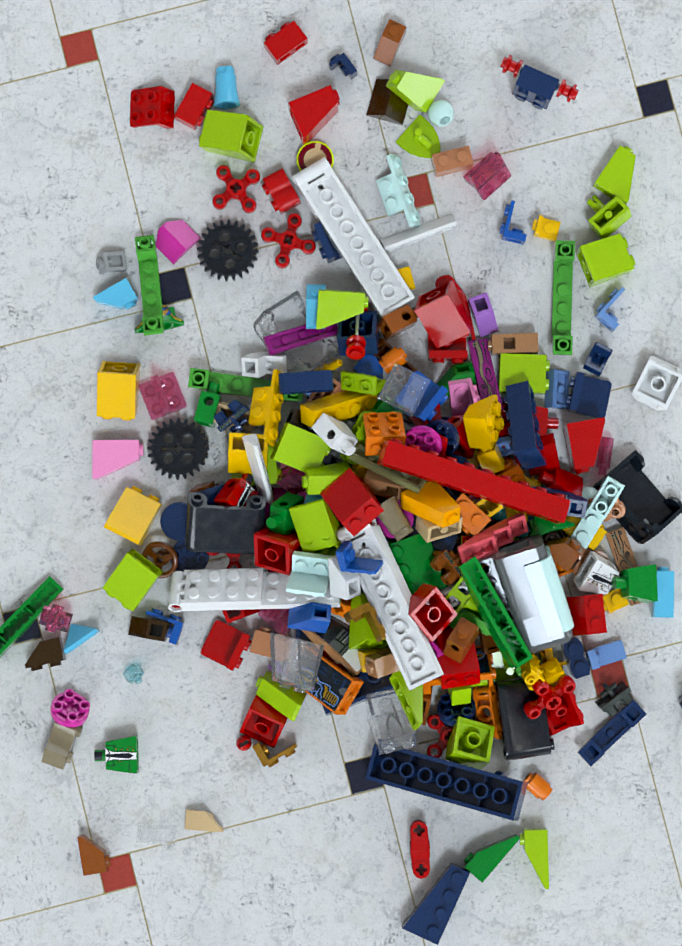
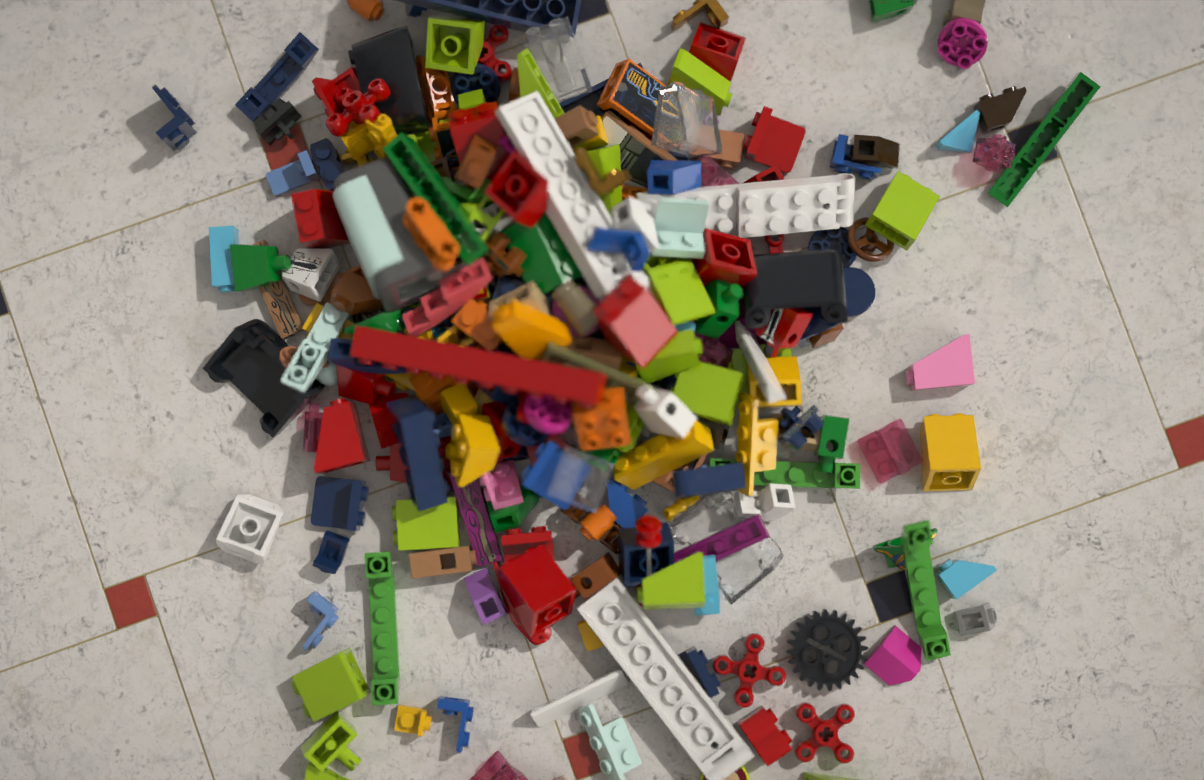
camera: 170 degrees right, 0 degrees up
(133, 515) = (911, 291): yellow slope -> none
(133, 673) = (886, 95): clear light blue tile -> none
(177, 466) = (860, 362): black gear -> none
(241, 739) = (741, 28): red hinge -> none
(361, 383) = (635, 487): lime bracket -> none
(501, 583) = (430, 234): none -> orange piece
(558, 389) = (379, 508): medium blue slope -> none
(614, 601) = (287, 242): yellow bracket -> none

